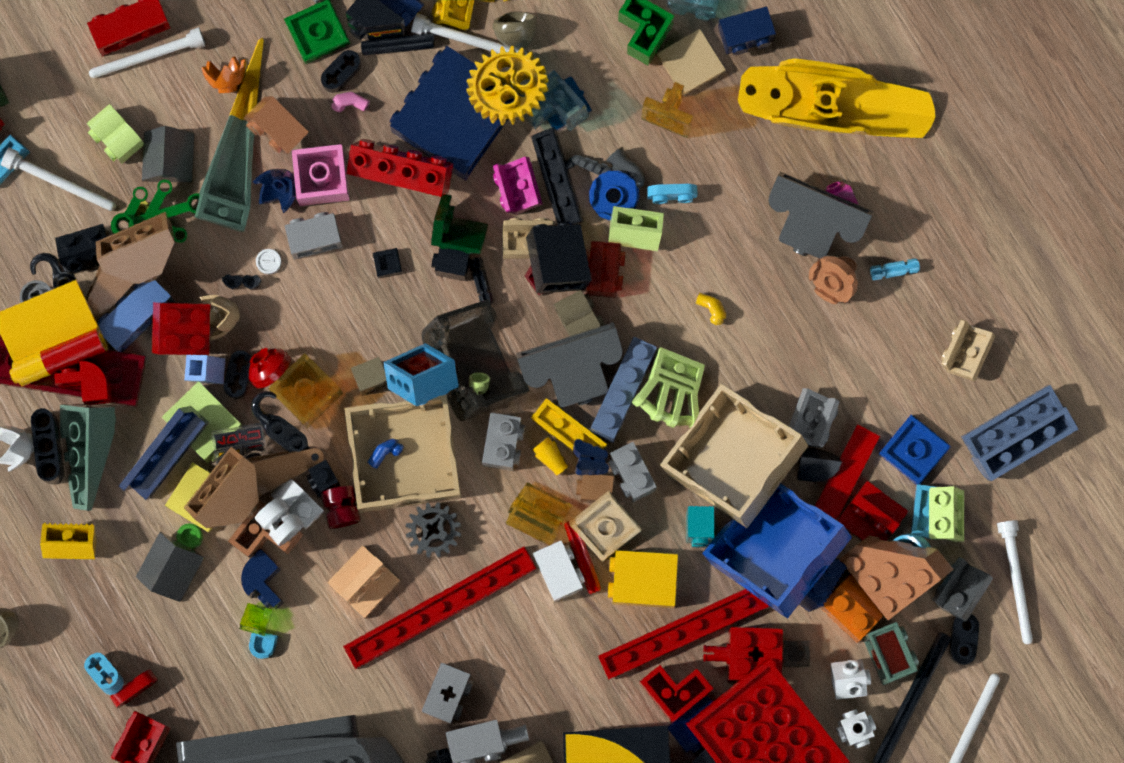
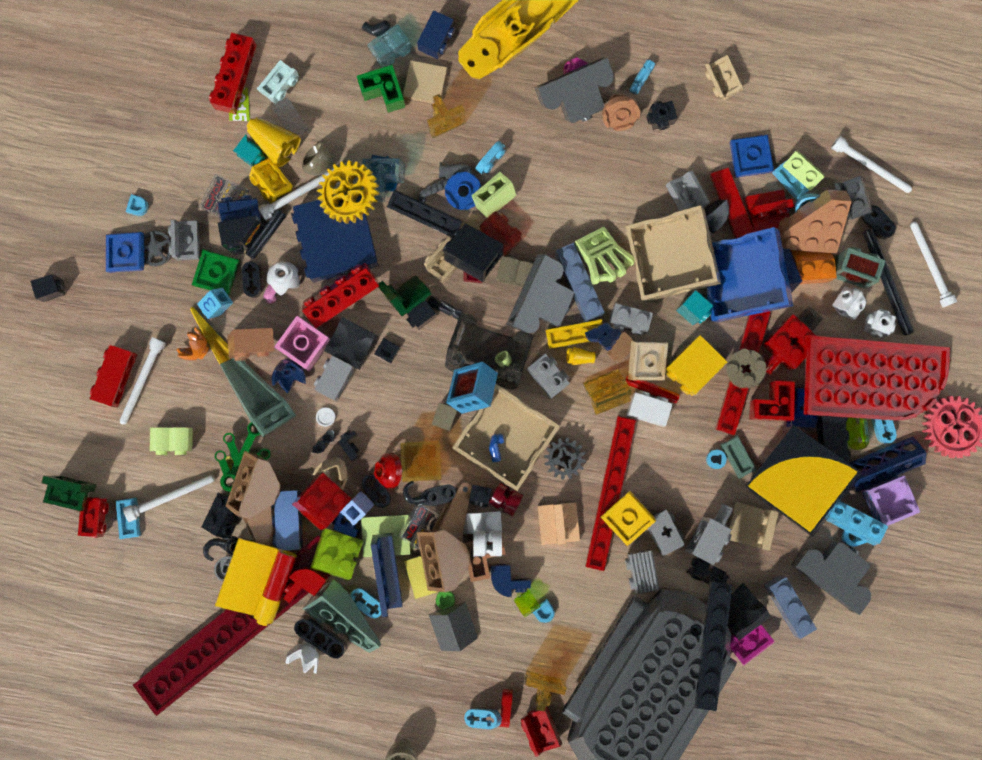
camera: 50 degrees left, 5 degrees up
(68, 541) = (388, 673): yellow brick -> none
(113, 462) = (363, 606): none -> medium azure beam
(141, 388) = (336, 554): none -> lime piece
(168, 155) = (211, 420): dark grey slope -> none
(176, 378) = (347, 528): none -> blue bracket
(188, 704) = (545, 685): none -> clear yellow bracket
(257, 312) = (350, 449): none -> black bracket
(285, 57) = (215, 303): none -> medium azure brick
(362, 221) = (351, 343): none -> black brick
(371, 107) = (289, 280): none -> white piece
(387, 706) = (642, 571): none -> light grey brick
(428, 643) = (628, 518): none -> yellow tile
(517, 186) = (409, 239): dark pink bracket -> none
(568, 684) = (716, 459): none -> medium azure tile
(590, 704) = (738, 457): none -> sand green tile
(695, 639) = (746, 379): none -> dark tan plate
(715, 307) = (575, 191): yellow arm -> none
(873, 330) = (661, 115): none -> black brick
(1019, 433) = (794, 91): sand blue brick -> none

